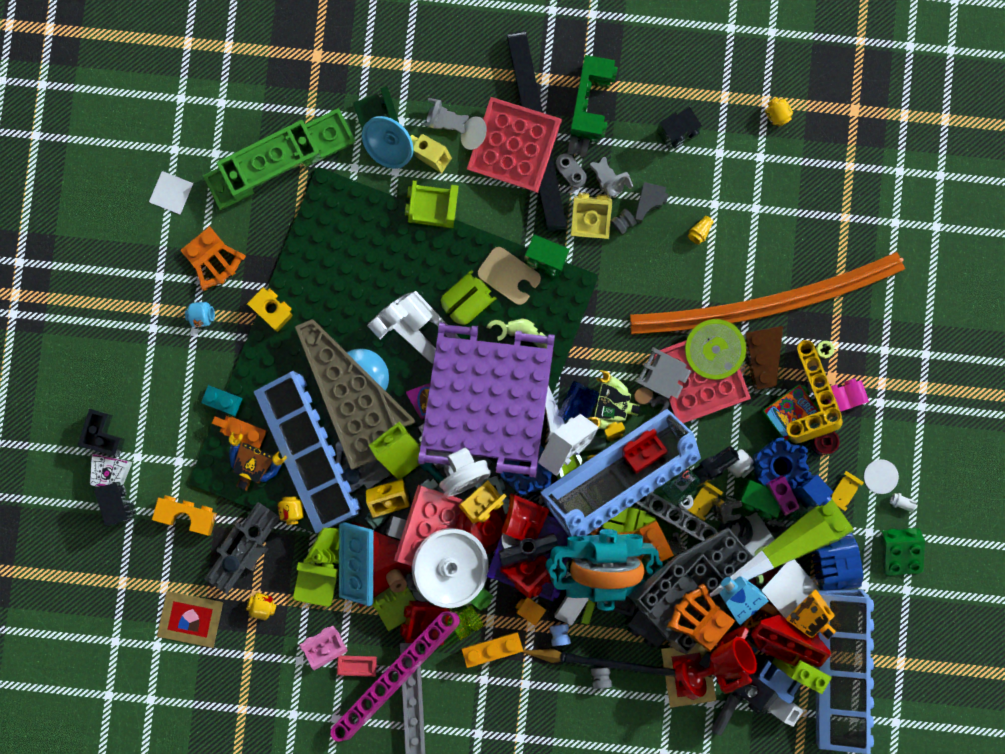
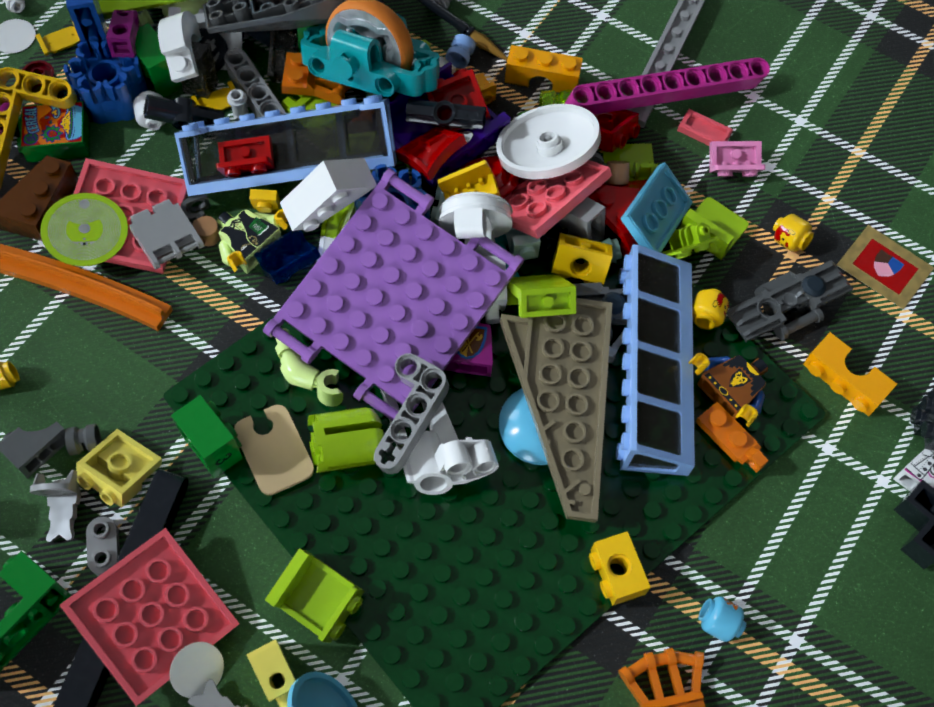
camera: 155 degrees left, 20 degrees down
(221, 400) = (740, 488): teal plate -> none
(434, 323) = (405, 417): none -> light grey beam
(578, 146) = (68, 570): dark grey wheel -> none
(681, 486) = (229, 106): clear green leg -> none
(750, 517) = (175, 43): none -> white arch

